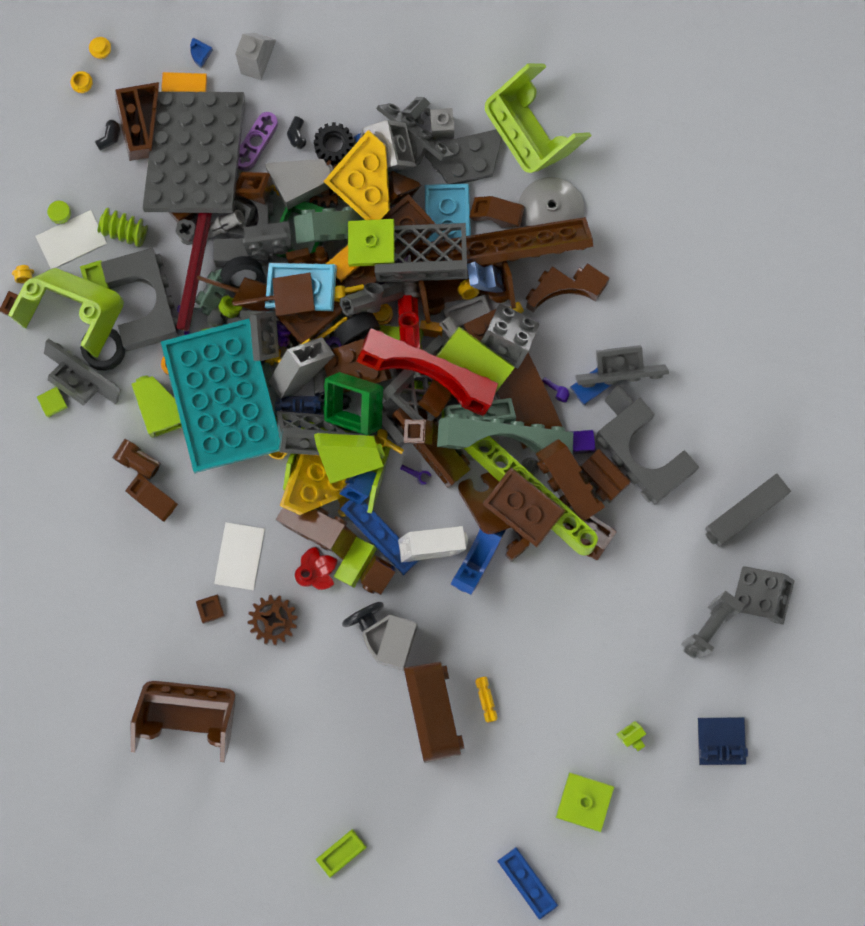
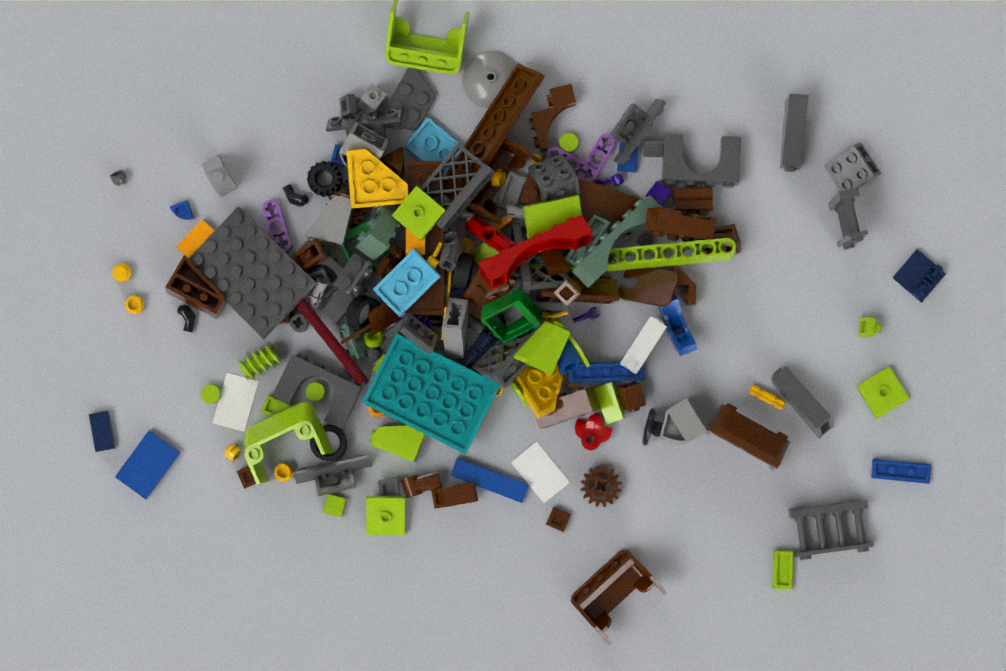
camera: 45 degrees left, 5 degrees up
(43, 331) = (283, 472): none -> yellow plate
(80, 453) = (385, 515): none -> lime plate
(107, 435) = (389, 487): none -> dark grey plate
(139, 298) = (315, 391): none -> lime tile
(192, 517) = (489, 480): none -> blue tile
(291, 295) = (407, 293): reddish brown piece -> none
(437, 857) = (838, 511): none -> dark grey fence
(485, 278) = (503, 161): medium blue slope -> none
(502, 212) = (462, 114): reddish brown slope -> none
(509, 735) = (802, 401): none -> dark grey slope
(524, 507) = (672, 267): reddish brown tile -> none
(553, 357) = (588, 164): none -> medium lavender beam
(556, 323) = (568, 142): none -> lime tile

